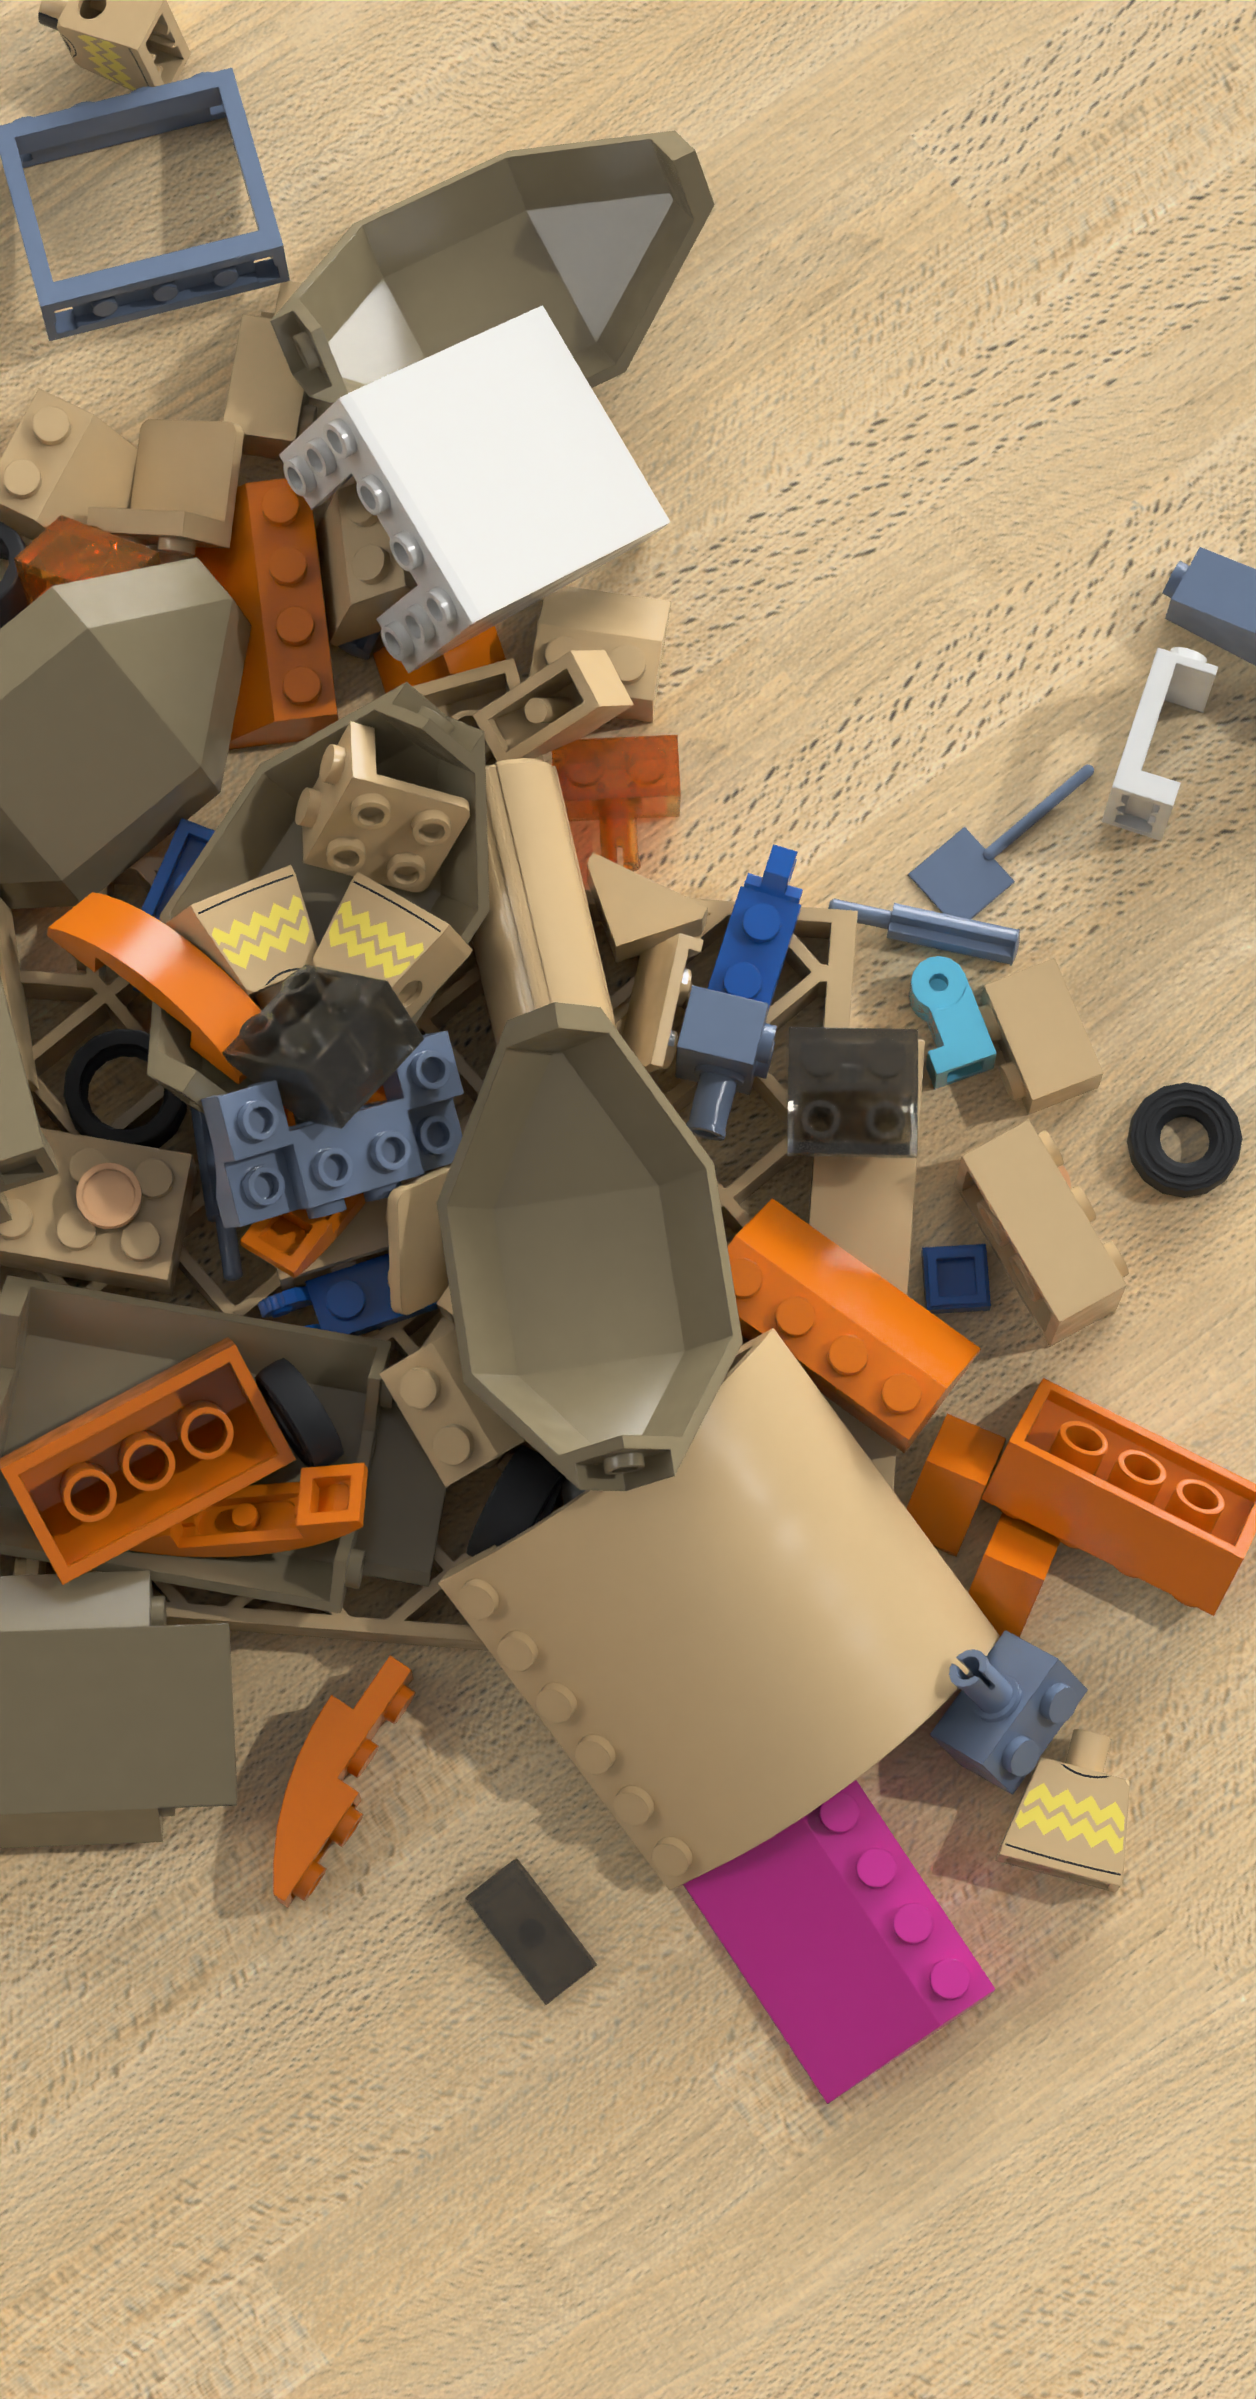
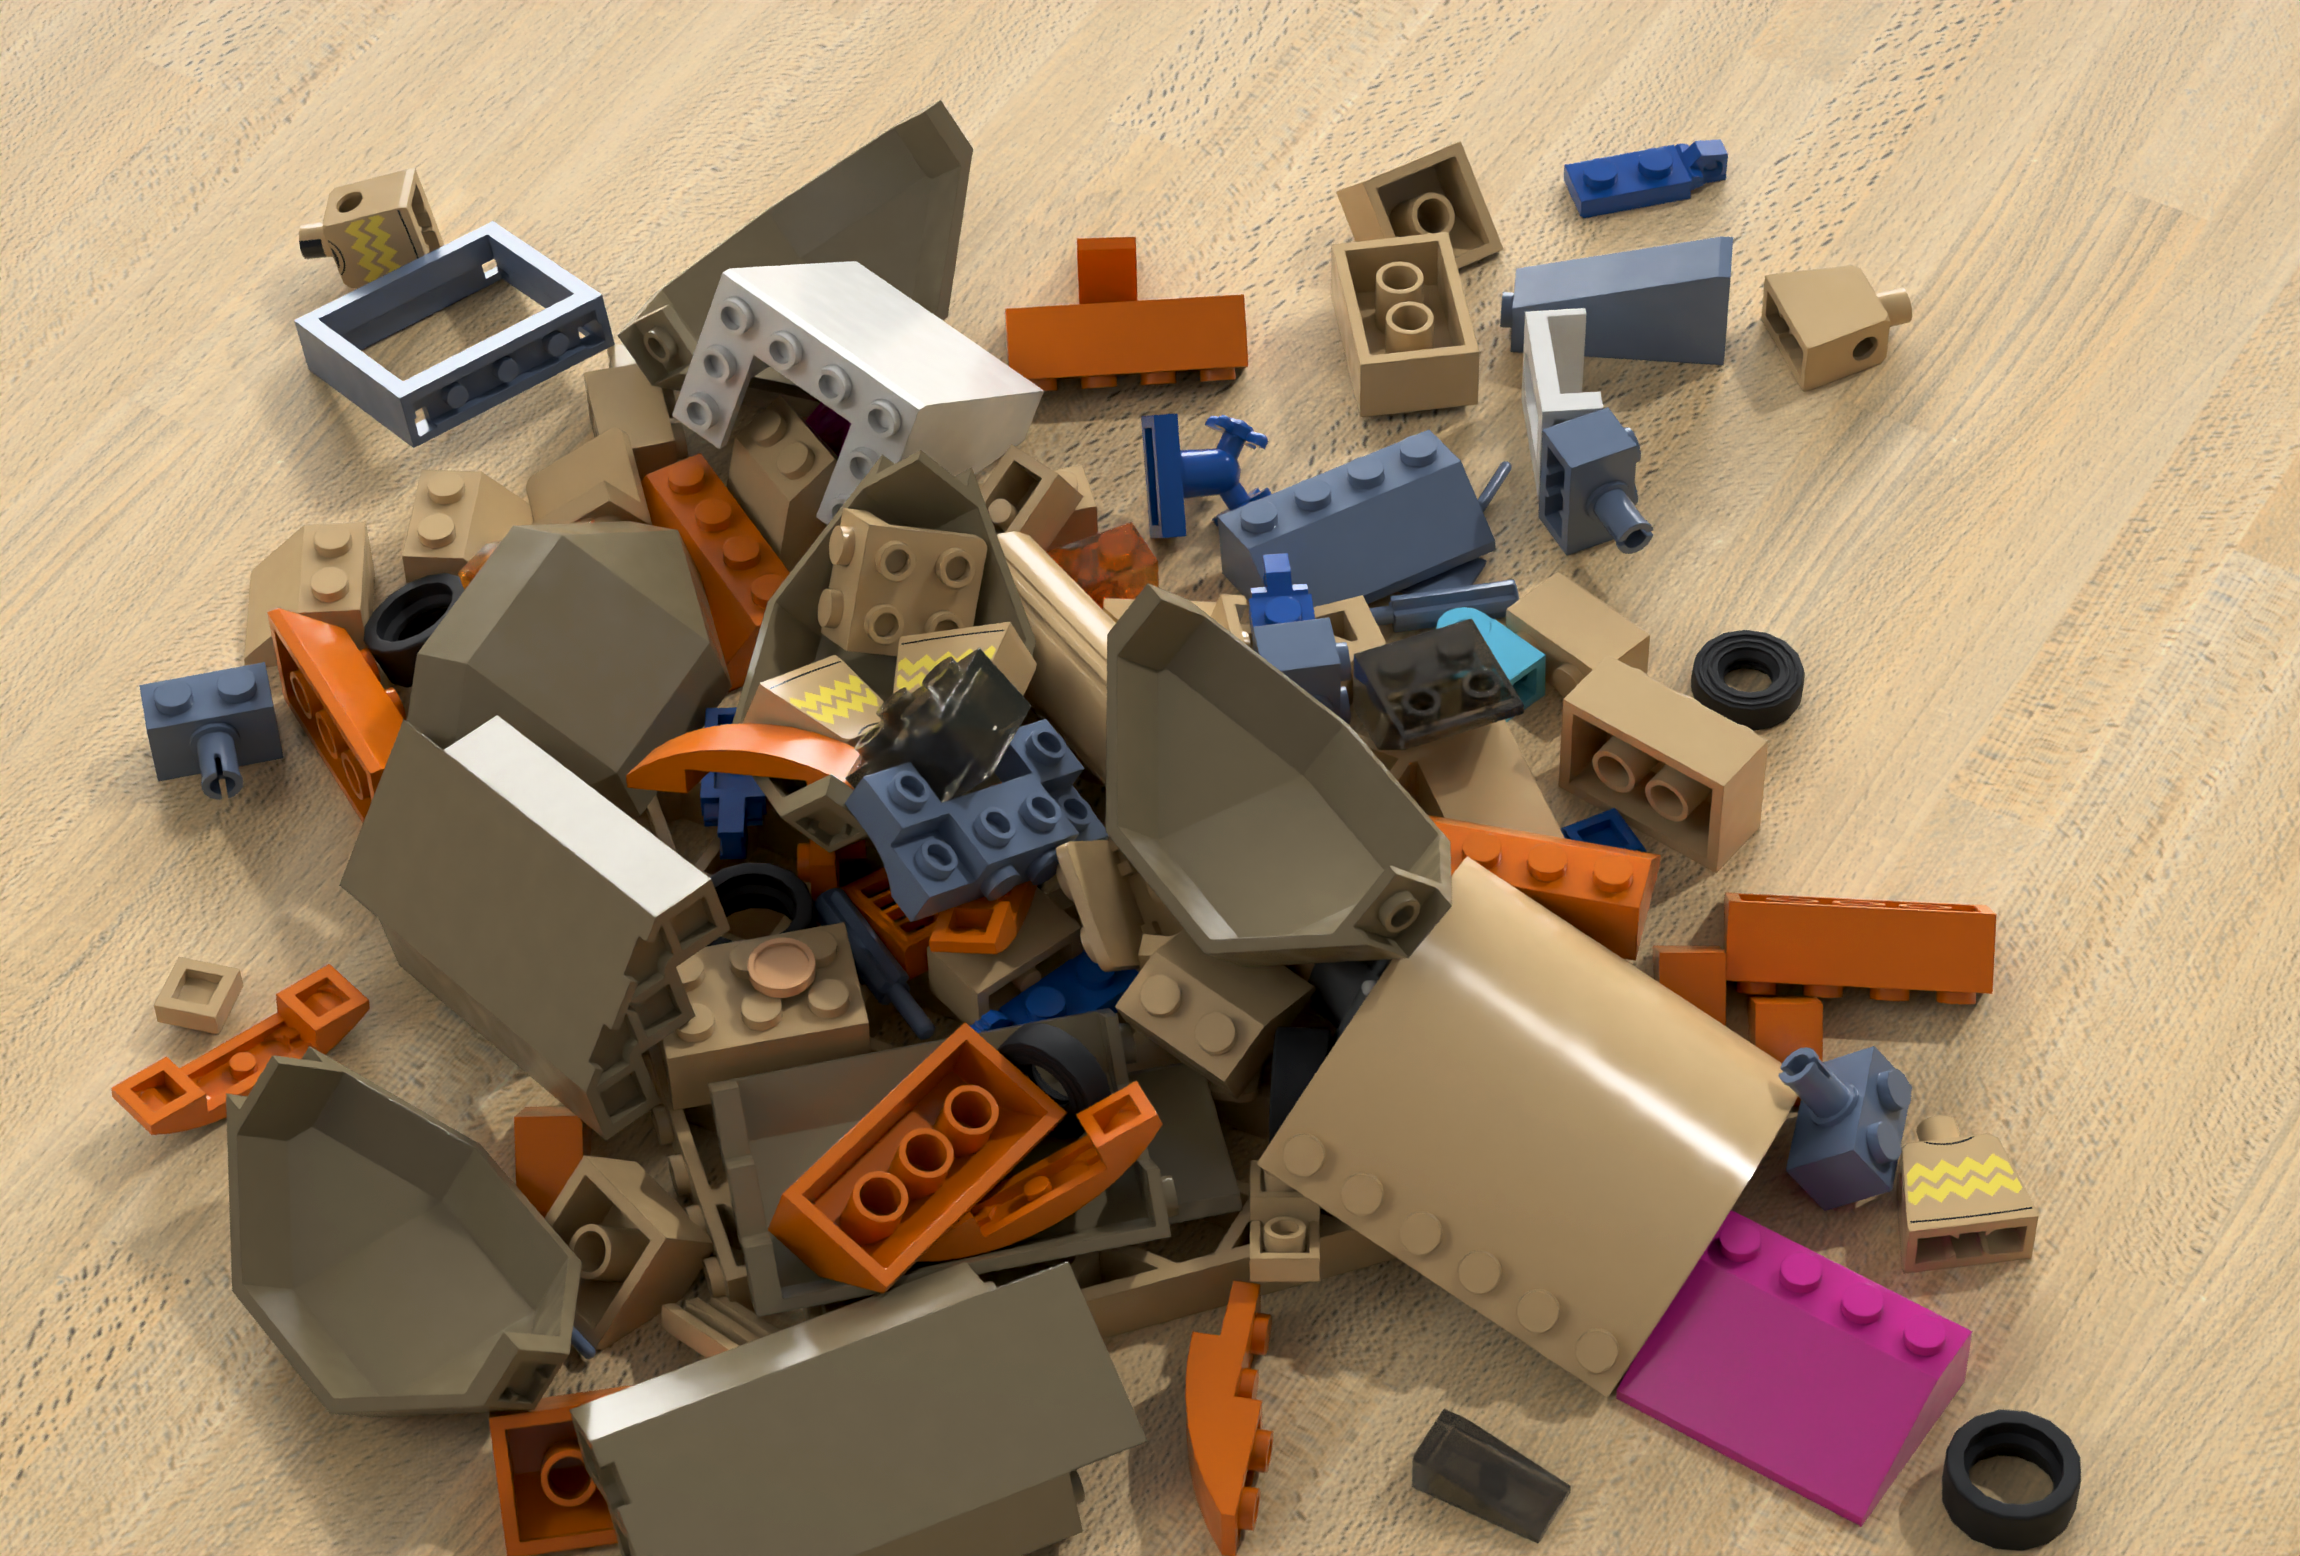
camera: 20 degrees left, 30 degrees down
(443, 1642) = (1282, 1231): none -> tan slope
(775, 689) = (1193, 473): none -> blue piece
(788, 464) = (1128, 339): none -> orange slope
(814, 357) = (1107, 269): none -> orange slope
(898, 817) = (1362, 525): none -> sand blue slope
(1016, 2109) = (2013, 1435): none -> black tyre
(1060, 568) = (1404, 324): none -> tan brick
(1138, 863) = (1590, 484): none -> sand blue brick
(1149, 419) = (1422, 198): none -> tan slope

